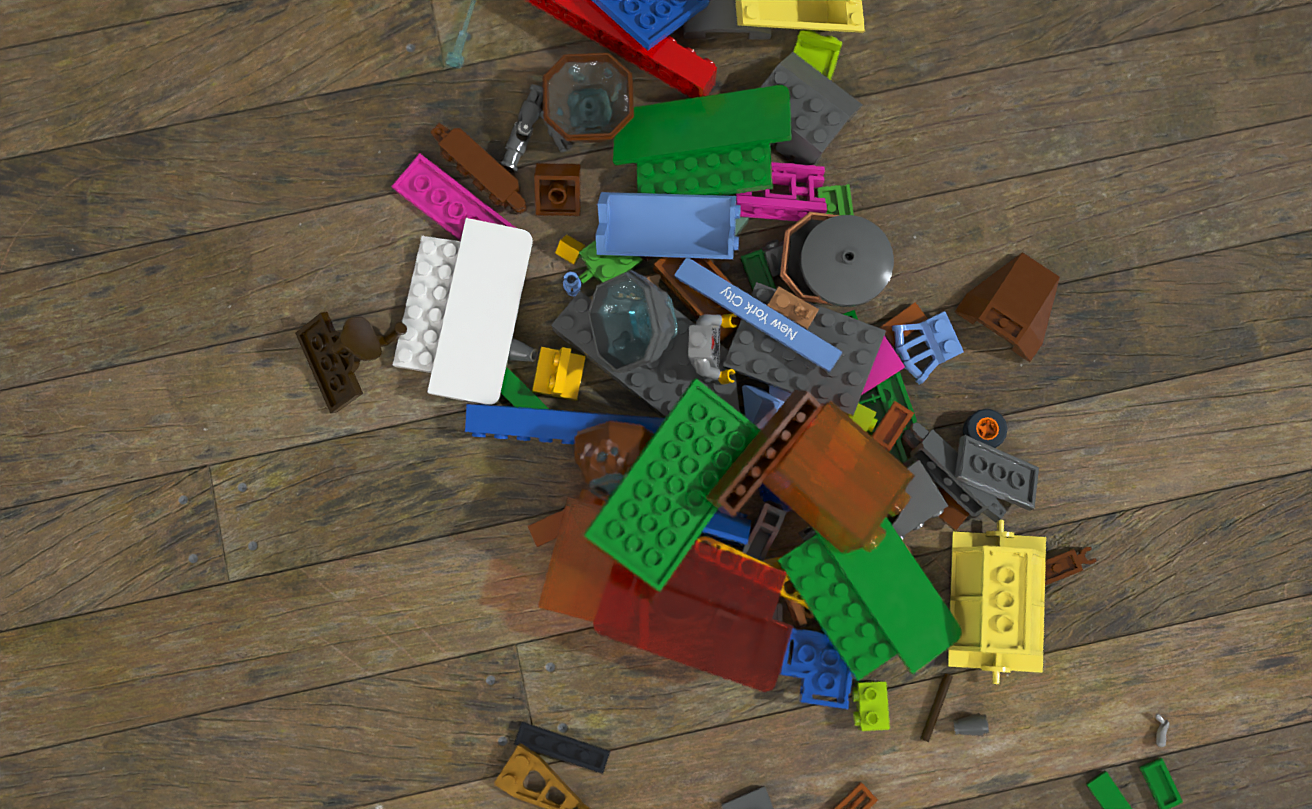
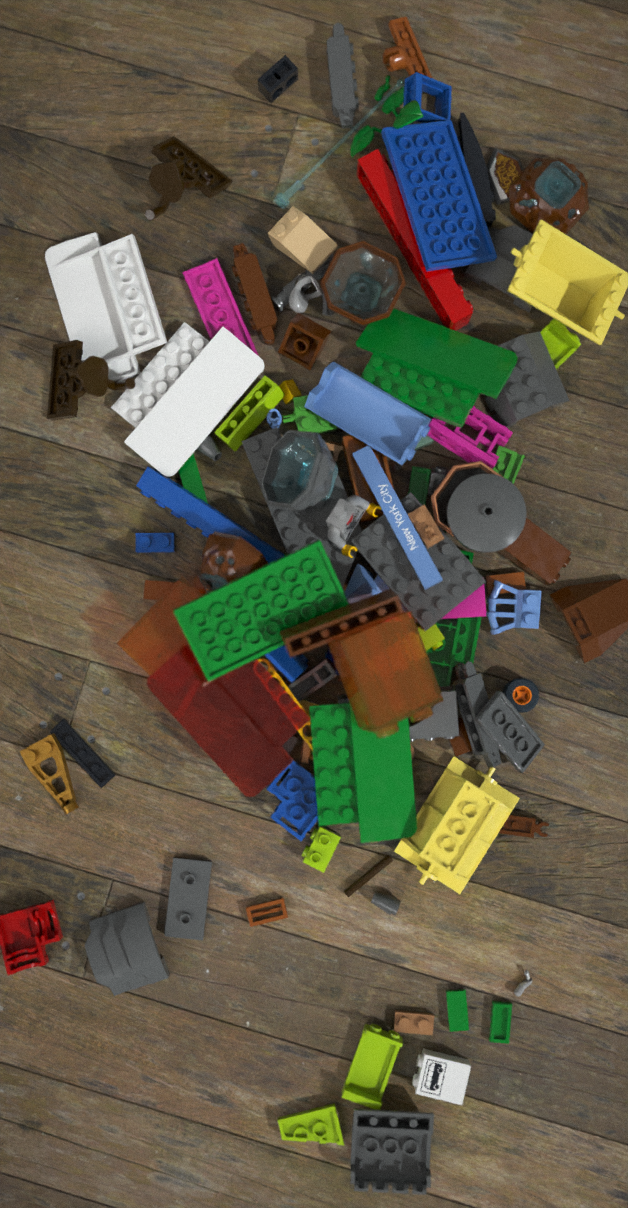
camera: 30 degrees right, 5 degrees up
(327, 257) = (106, 300): none -> white slope
(334, 85) = (182, 170): none -> dark brown plate
(499, 88) = (302, 240): none -> tan slope
(516, 481) = (155, 543): none -> blue plate
(530, 150) = (298, 300): none -> light grey piece
(543, 292) = (249, 413): none -> lime brick
(558, 373) = (228, 480): yellow bracket -> none
(892, 425) = (451, 654): dark orange tile -> none
(920, 276) = (537, 553): none -> reddish brown slope

